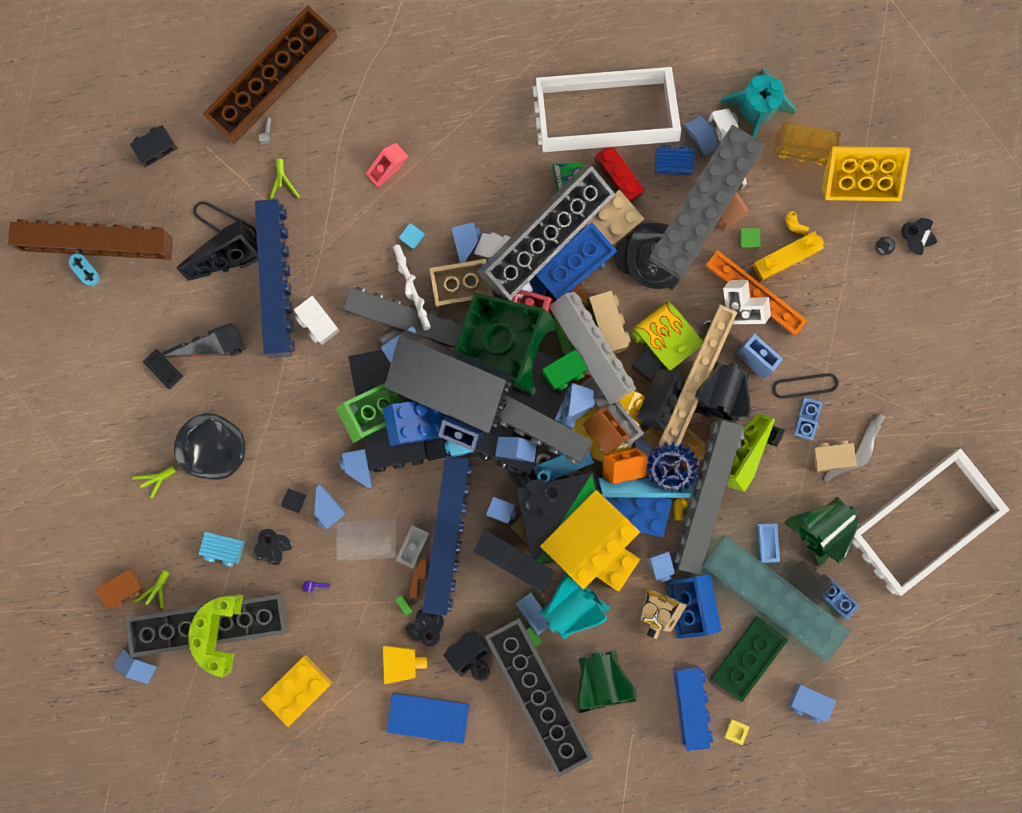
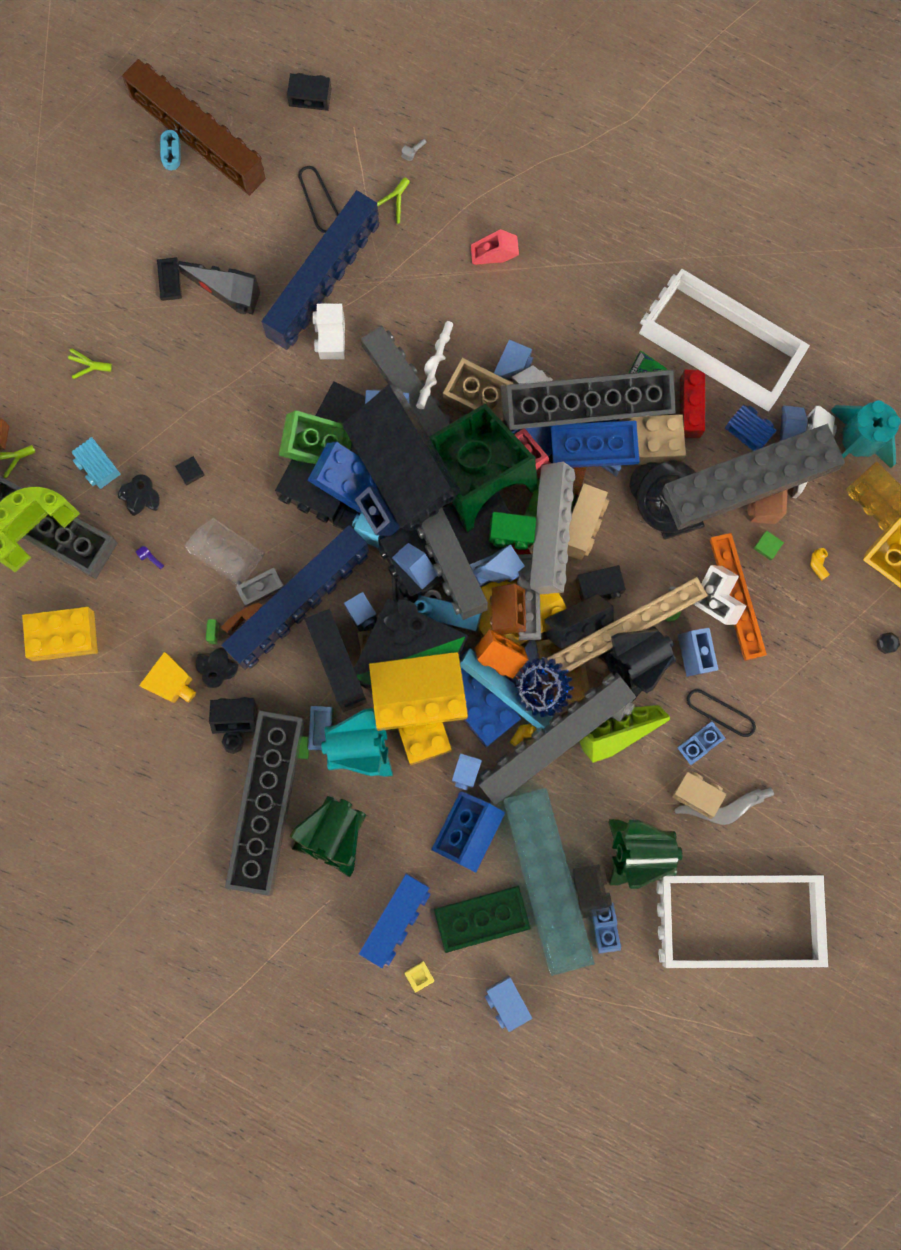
camera: 35 degrees right, 5 degrees down
(209, 447) = (153, 368): black piece -> none
(227, 249) = (295, 218): black wedge -> none
(270, 75) = (454, 103): reddish brown brick -> none
(326, 508) = (212, 498): medium blue slope -> none
(357, 467) = (266, 479): medium blue slope -> none
(412, 236) = (469, 325): medium azure tile -> none
(428, 718) = (154, 748): blue tile -> none
(661, 612) = (433, 813): tan torso -> none
(666, 333) = (628, 572): lime door -> none
(768, 542) = (580, 827): light blue tile -> none
(775, 436) = (659, 735): black slope -> none
(788, 256) = (791, 585): yellow brick -> none

